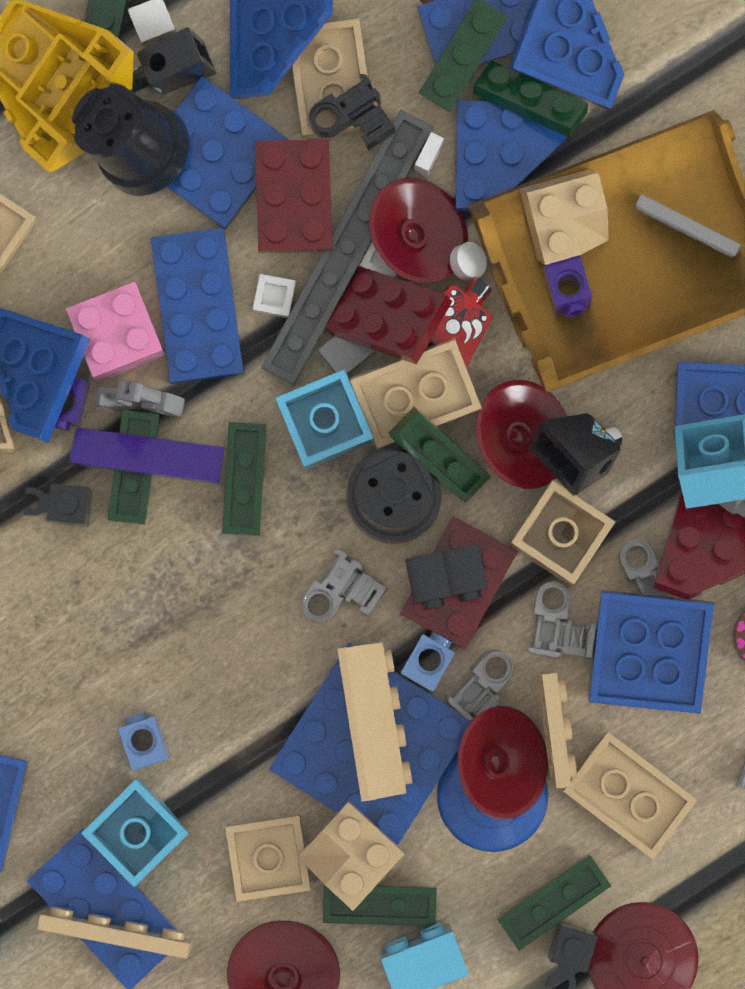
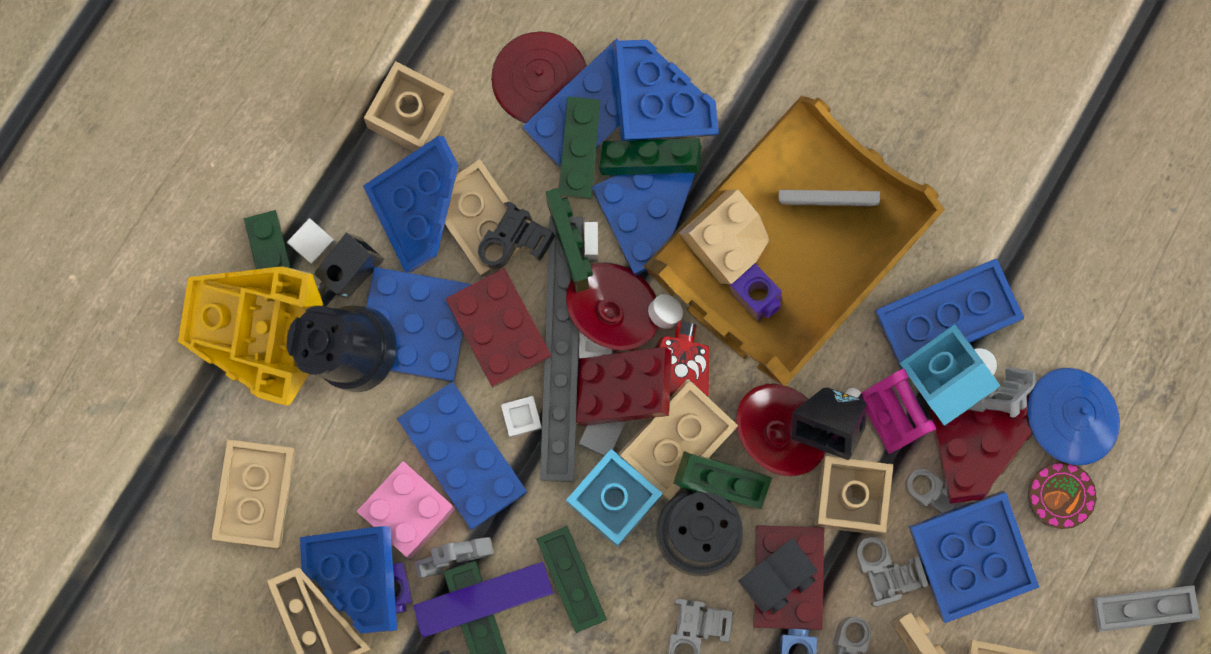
camera: 25 degrees left, 5 degrees down
(407, 142) = (569, 239): none -> dark green plate
(638, 472) = (889, 415): none -> dark pink plate

